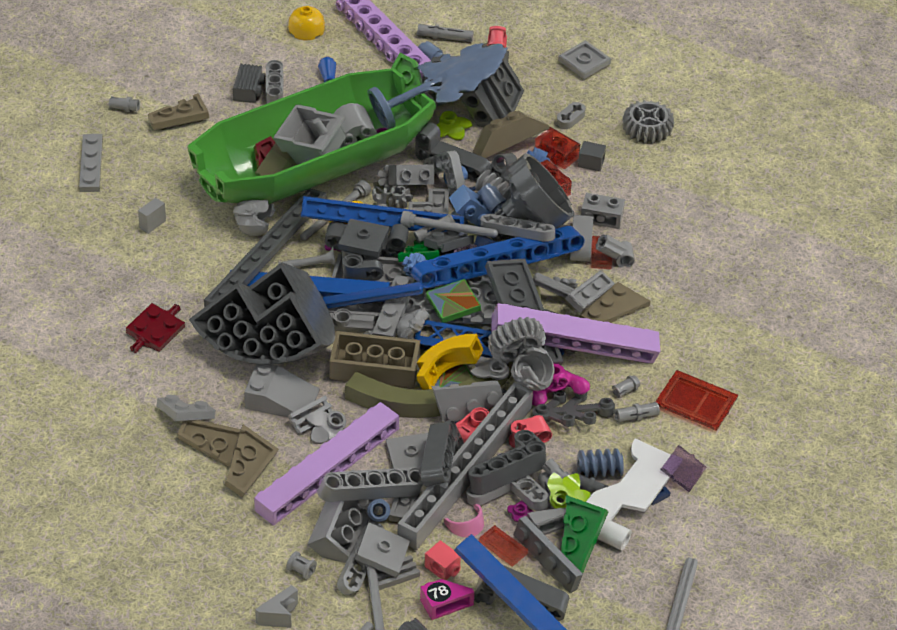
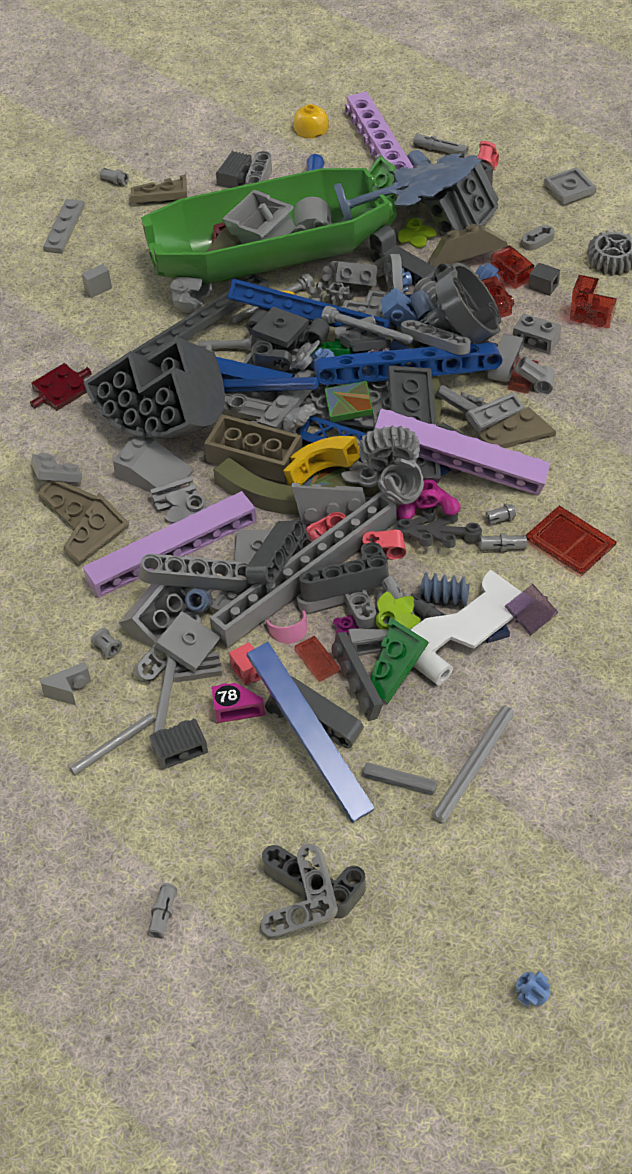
camera: 20 degrees right, 5 degrees up
(396, 263) = (303, 356): none -> light grey plate
(644, 177) = (589, 306): none -> clear red brick

